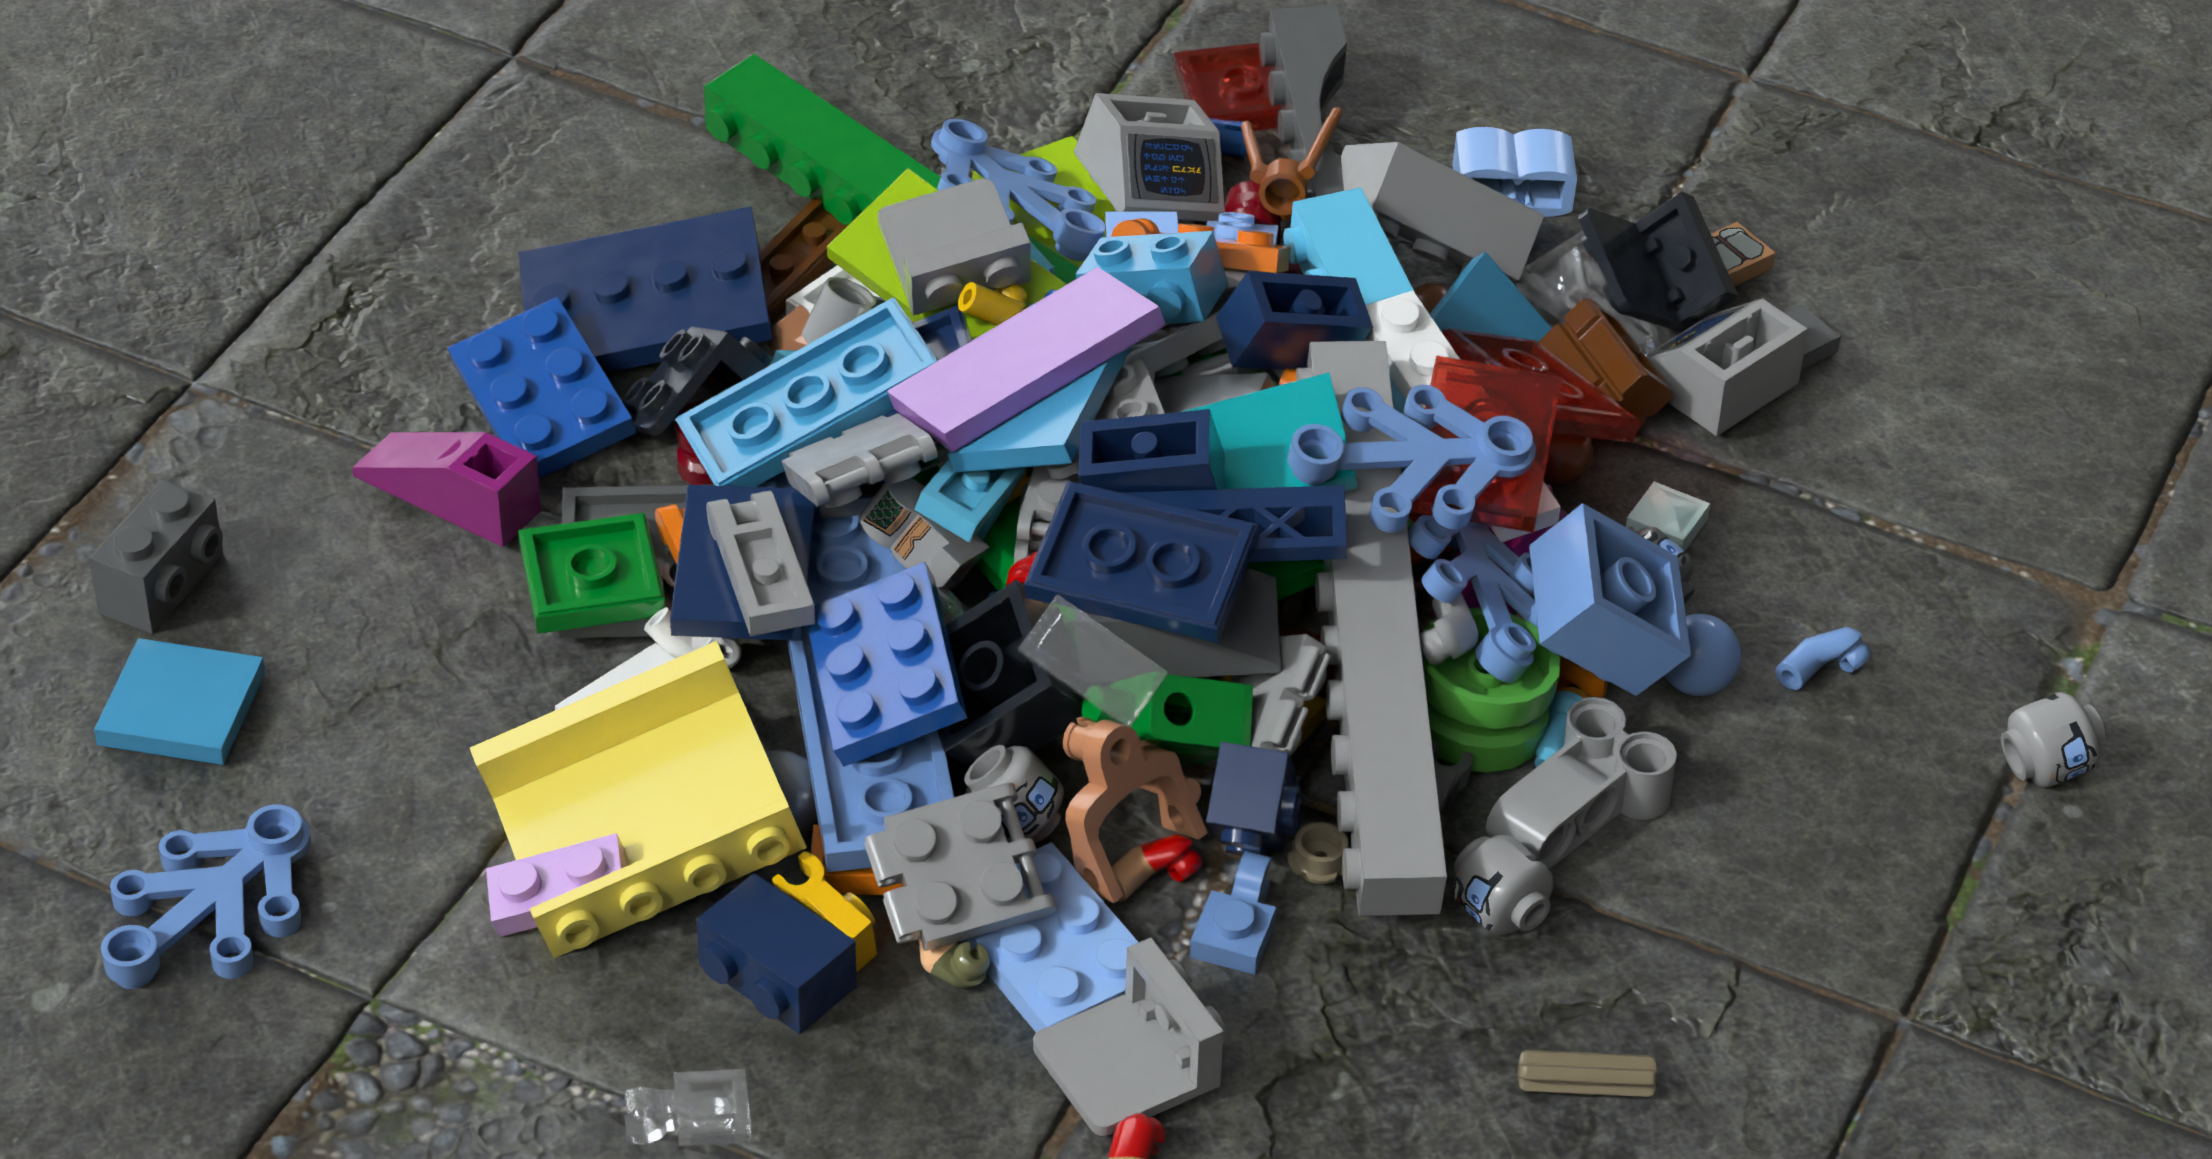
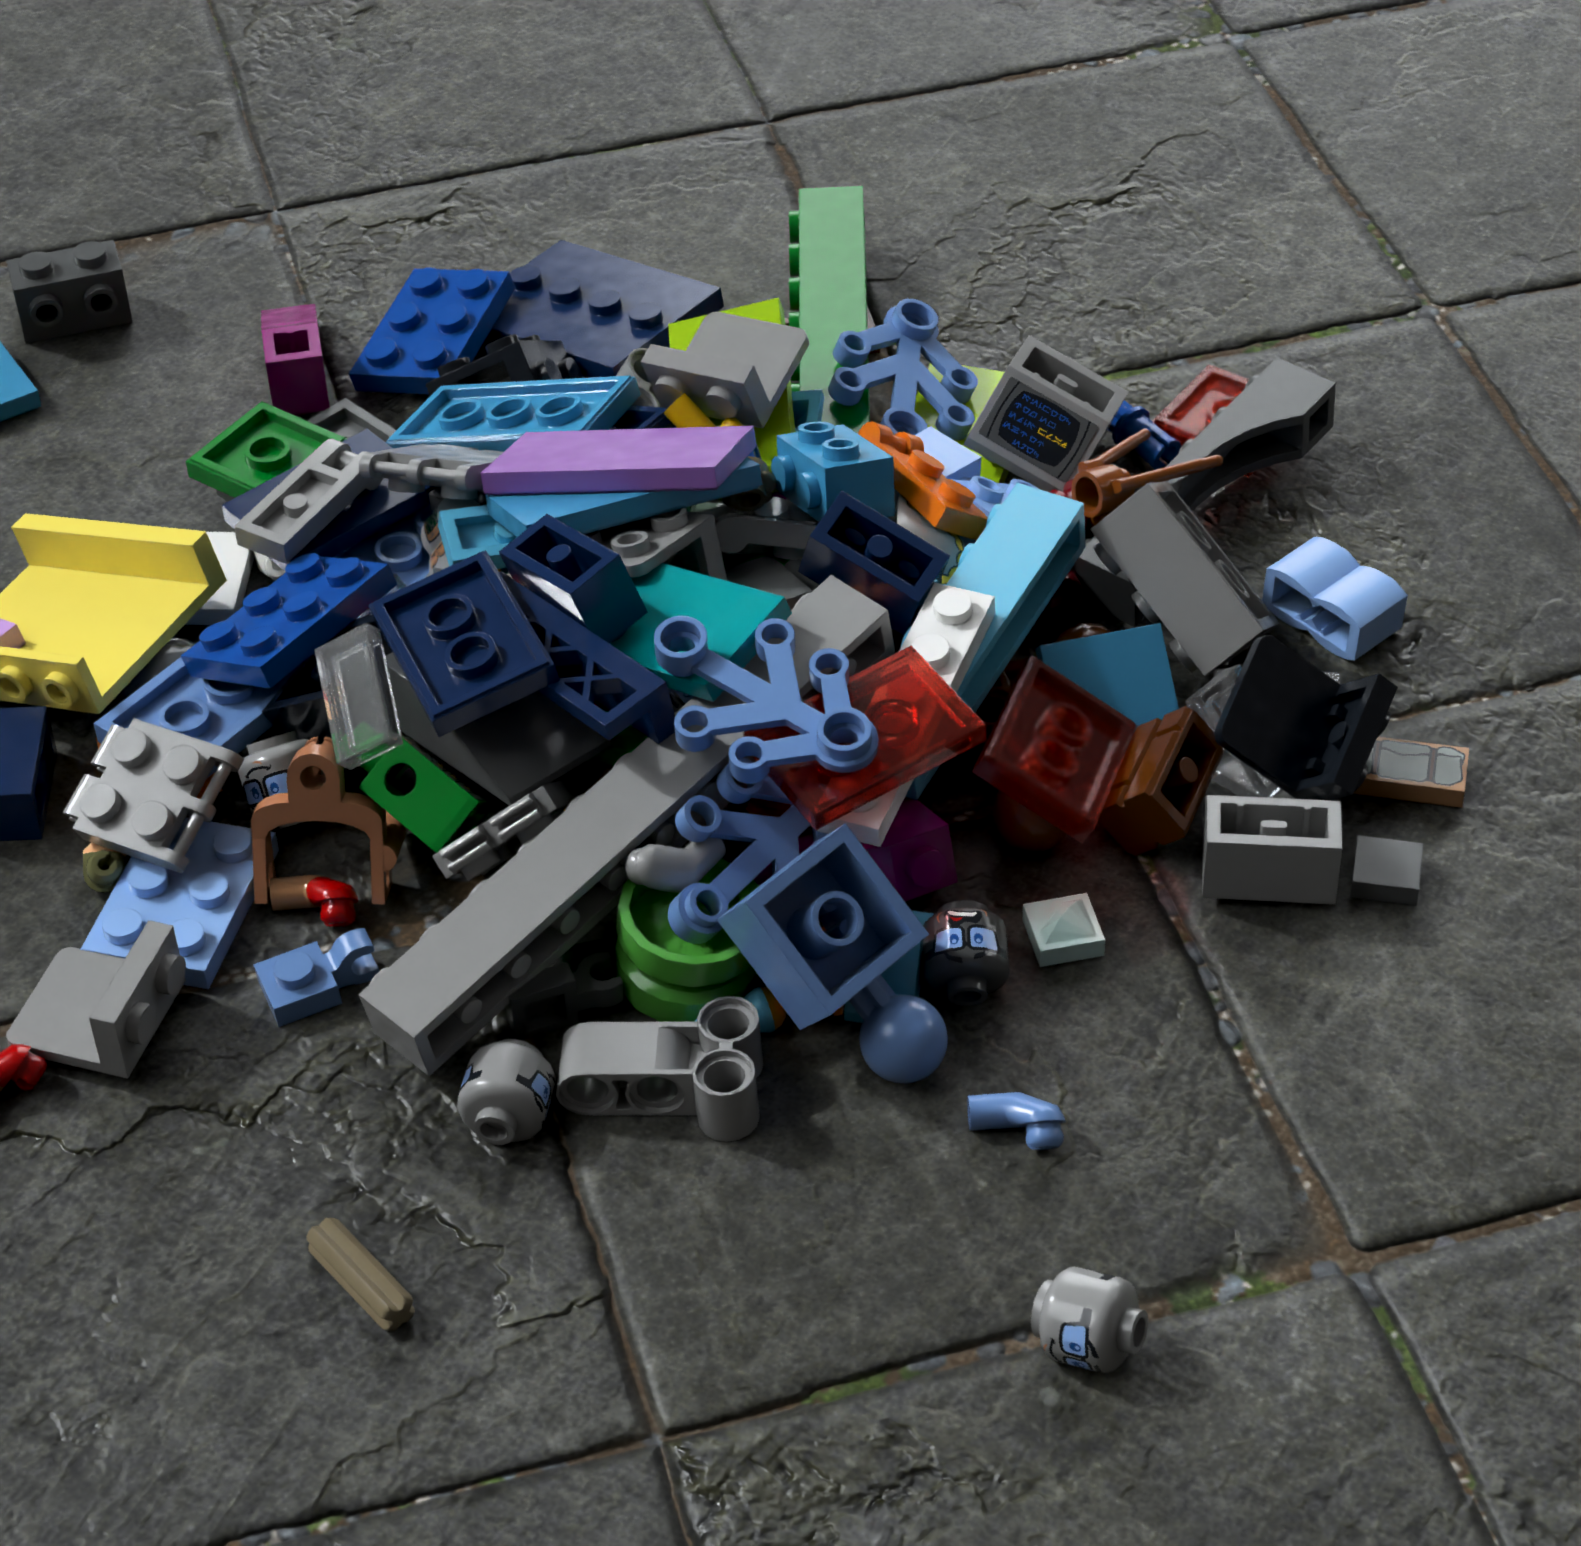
camera: 50 degrees right, 0 degrees up
(843, 912) = (62, 768): yellow plate -> none
(1254, 799) = (390, 885): dark blue brick -> none

